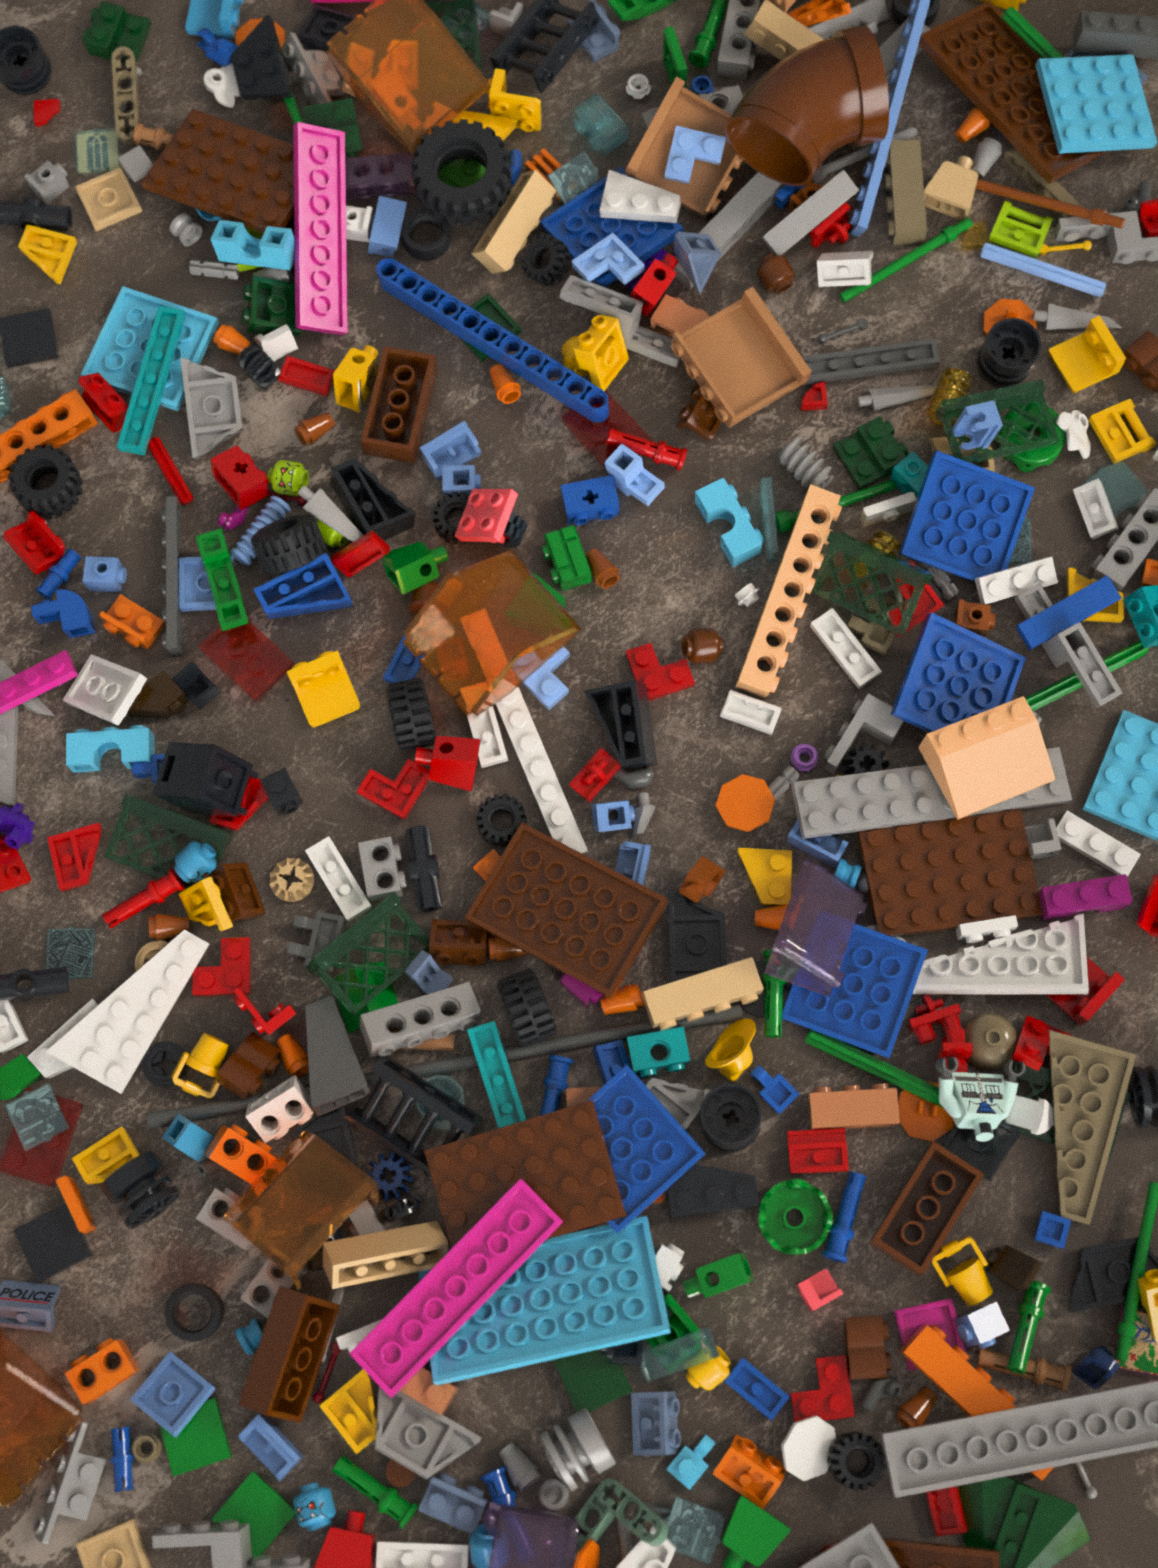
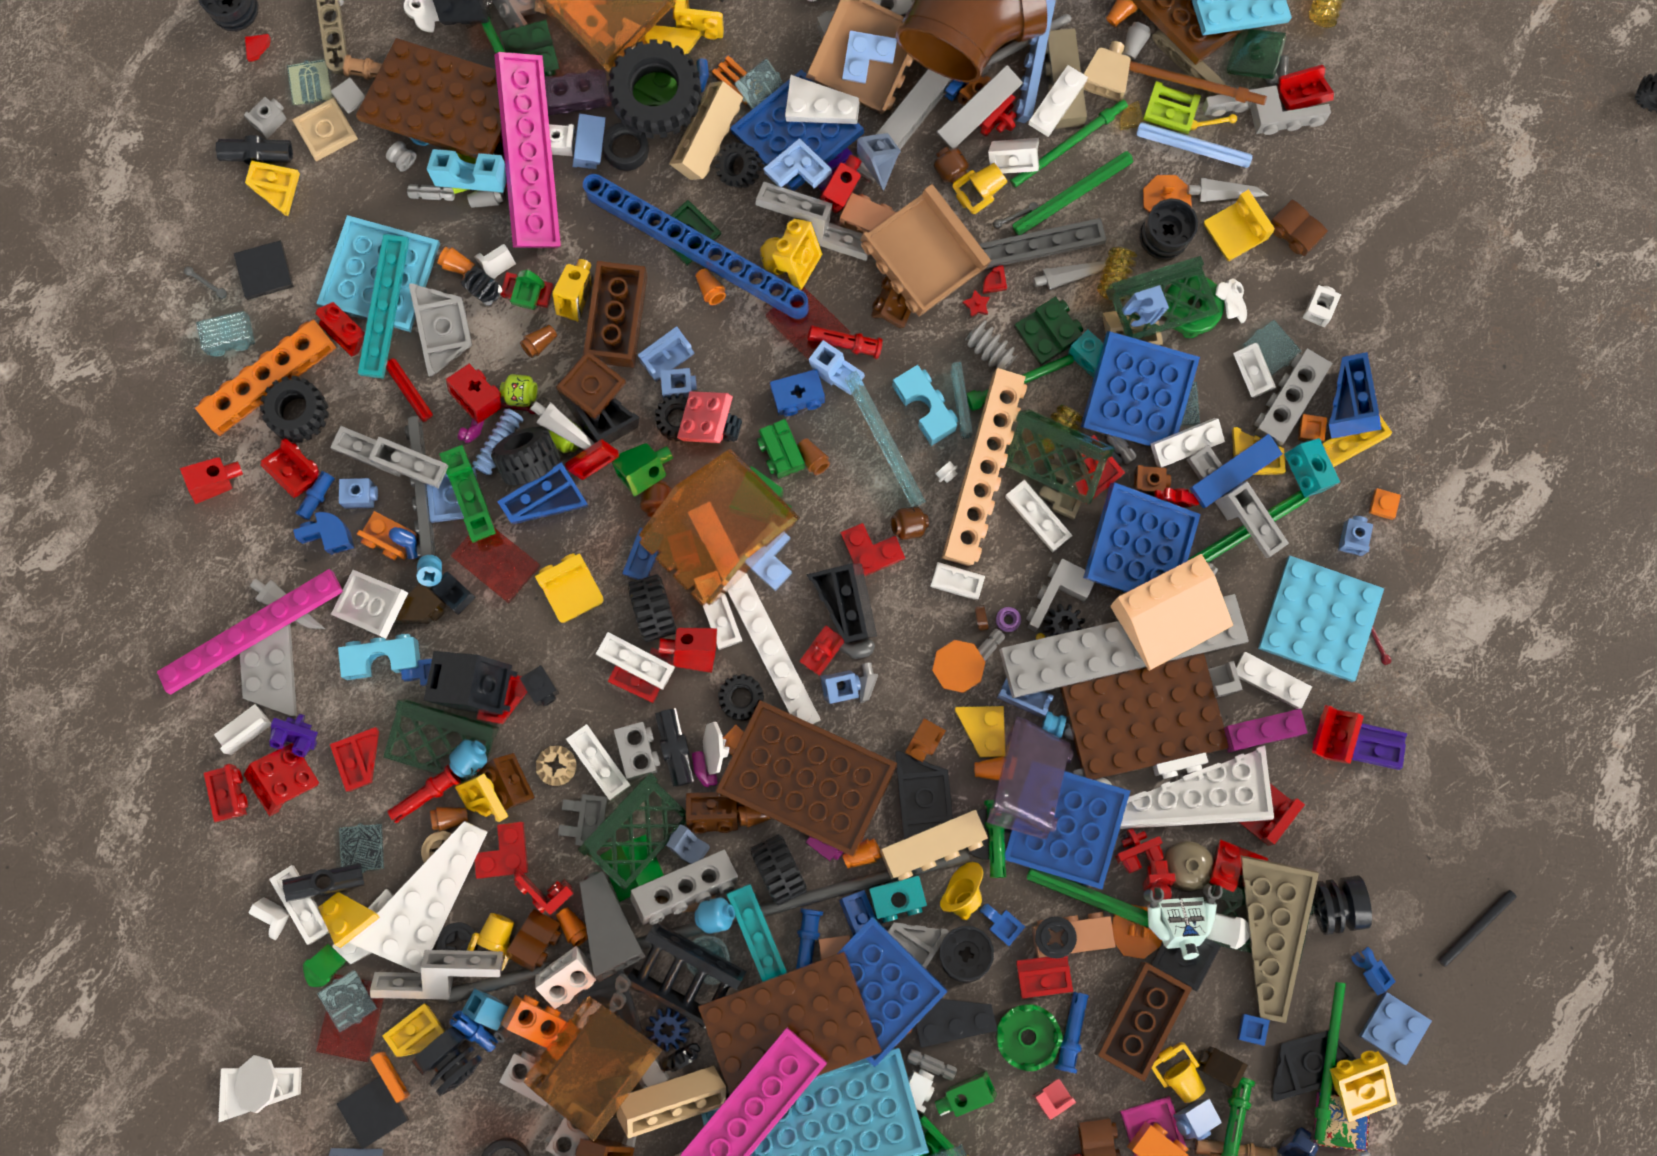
camera: 10 degrees left, 5 degrees up
(45, 1025) = (345, 918): none -> yellow wing
(138, 1093) = (436, 974): none -> light grey bracket
(142, 536) = (389, 457): none -> light grey bracket
(151, 625) = (406, 539): none -> blue arm
(173, 1160) = (473, 1031): none -> blue pin
(174, 651) = (433, 566): none -> dark azure wheel
(269, 306) = (486, 226): dark green plate -> none
(306, 373) = (526, 289): none -> green tile
(342, 1121) = (619, 999): none -> dark grey piece
(366, 473) = (591, 384): none -> reddish brown tile
(388, 770) = (635, 660): none -> white plate
(450, 896) = (700, 770): none -> magenta arm
(451, 1052) = (714, 915): none -> dark azure head
(467, 871) = (714, 748): none -> white piece
(600, 125) = (778, 30): clear light blue brick -> none
(633, 860) = (862, 728): medium blue hinge -> none
(681, 553) = (884, 439): none -> clear light blue tile
(682, 1240) = (931, 1064): none -> light grey axle
(774, 753) = (981, 618): none -> reddish brown tile
(793, 421) = (977, 304): none -> red piece
(811, 292) = (985, 181): none -> yellow piece
(846, 1108) = (1068, 937): none -> black gear
(888, 510) = (1068, 384): white plate -> none
(896, 212) = (1058, 100): none -> white plate
(906, 311) = (1072, 193): none -> green axle
(1003, 636) = (1179, 497): none -> red plate
(1116, 436) = (1269, 300): yellow plate -> none
(1117, 178) = (1256, 53): none -> clear green plate

